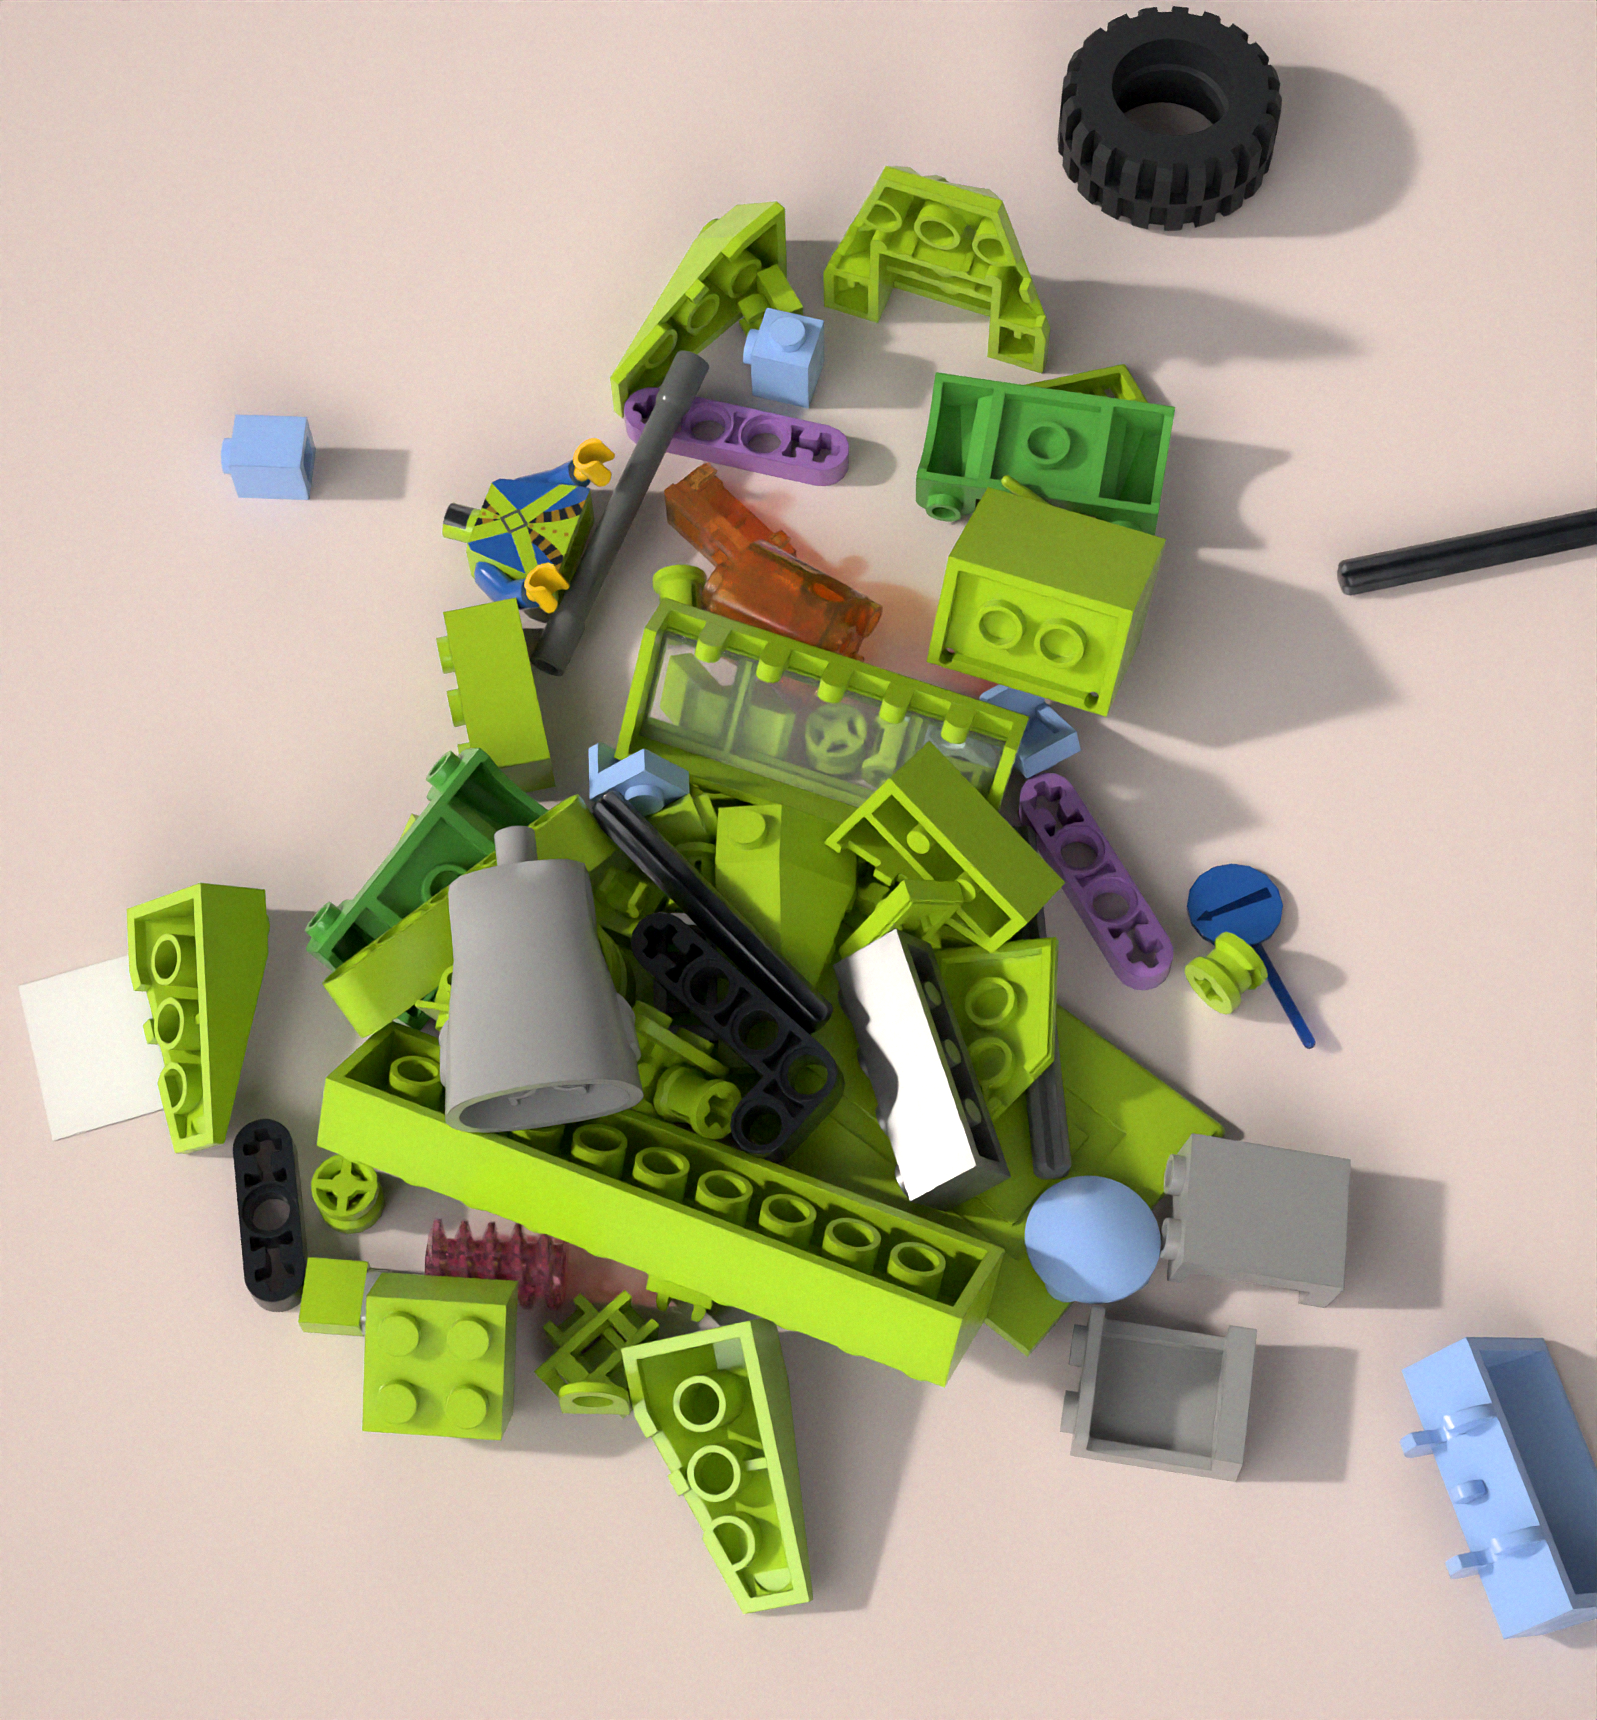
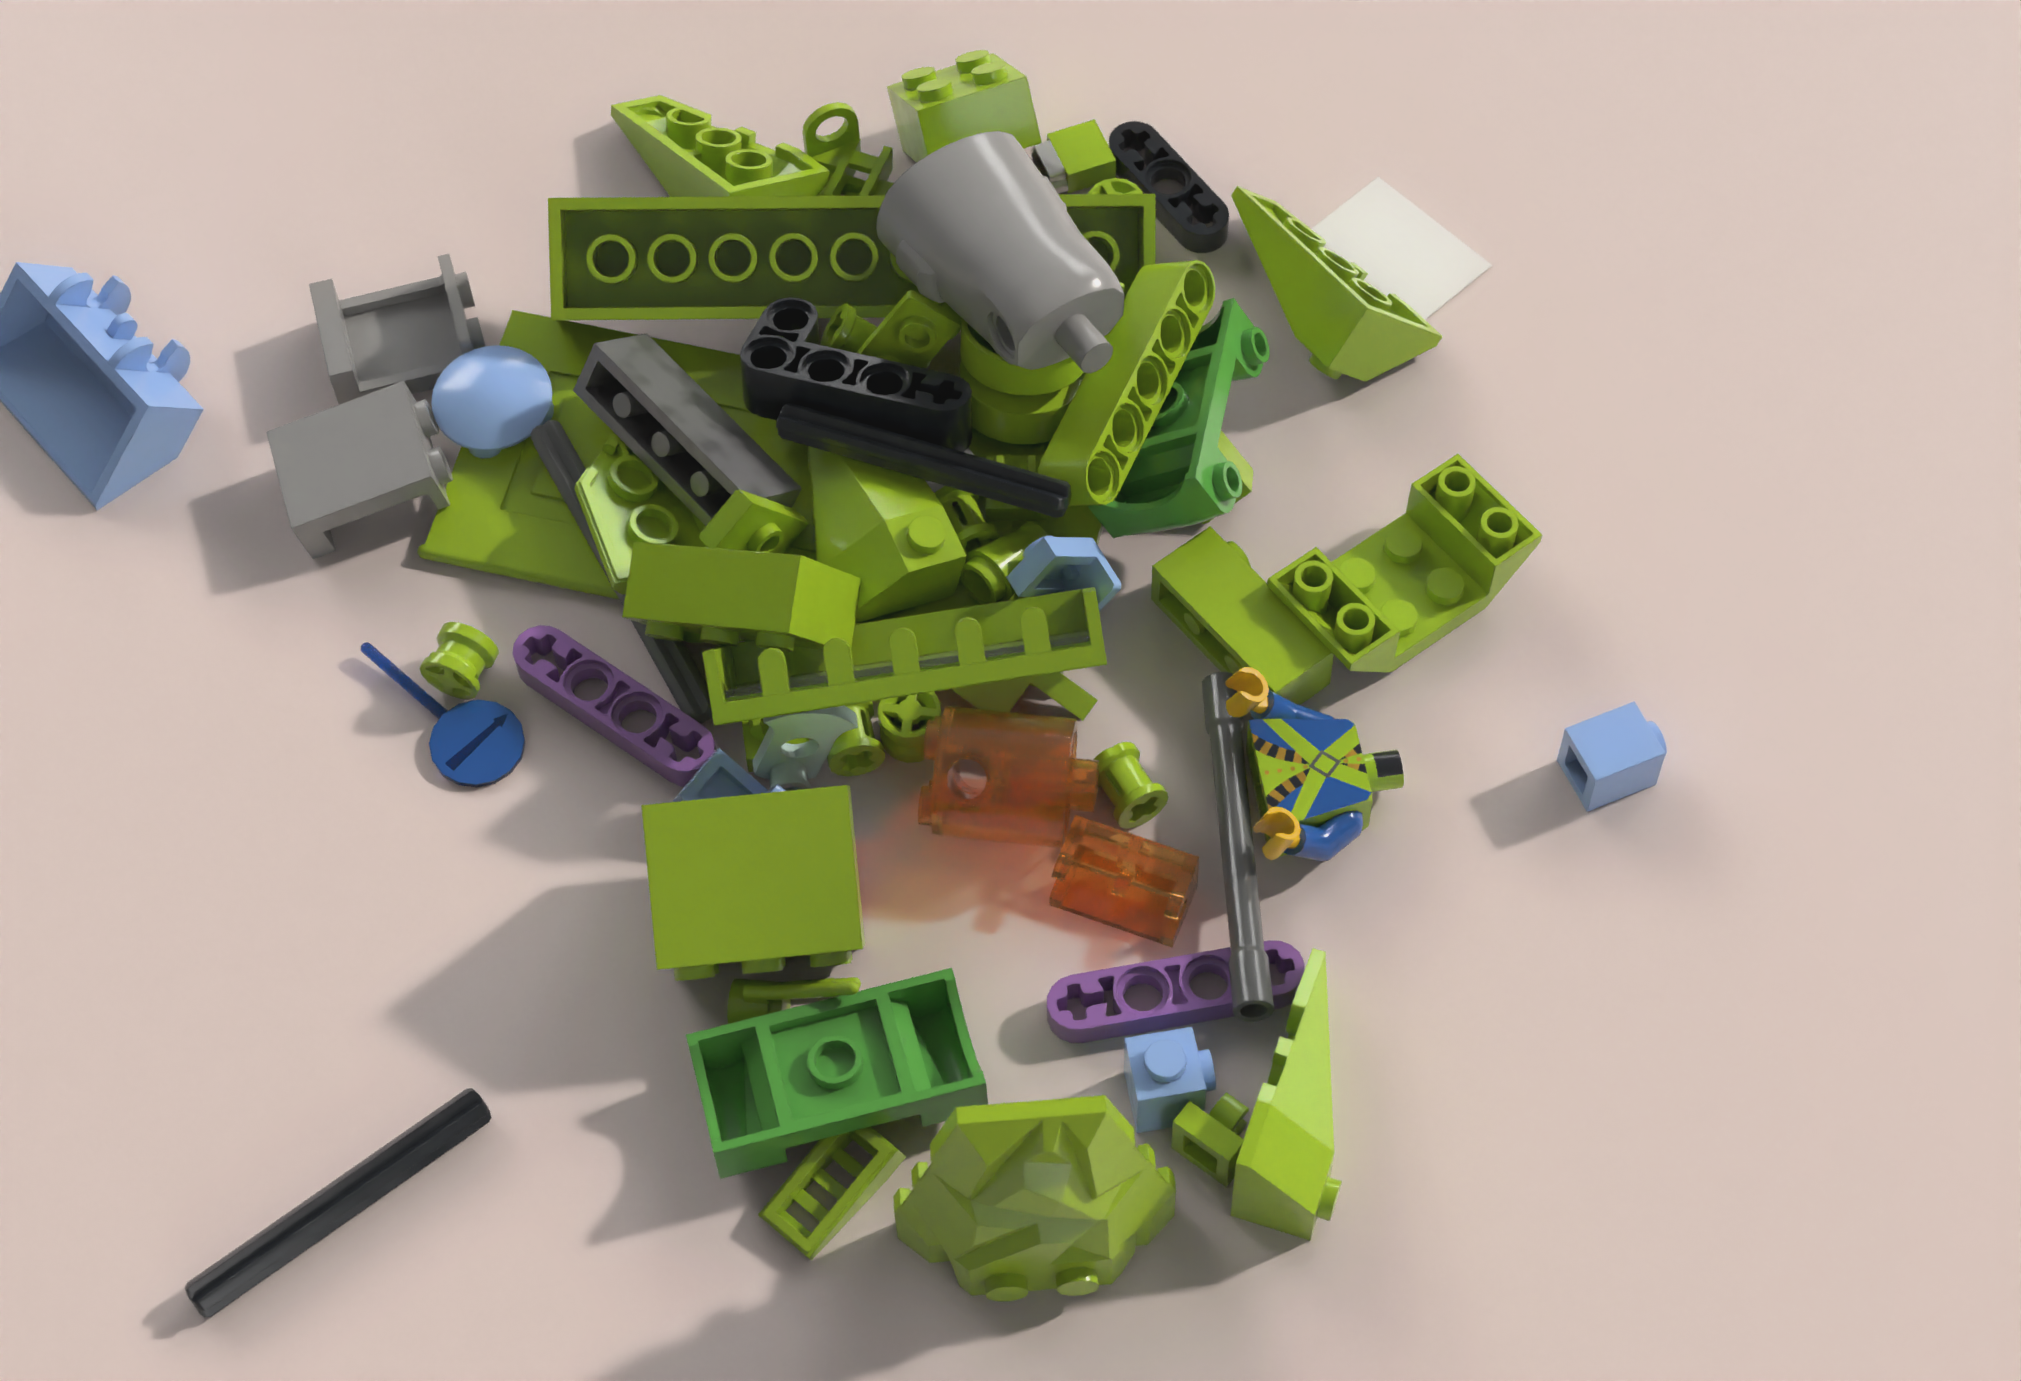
camera: 155 degrees right, 5 degrees down
(335, 680) = (1412, 575): none -> lime slope

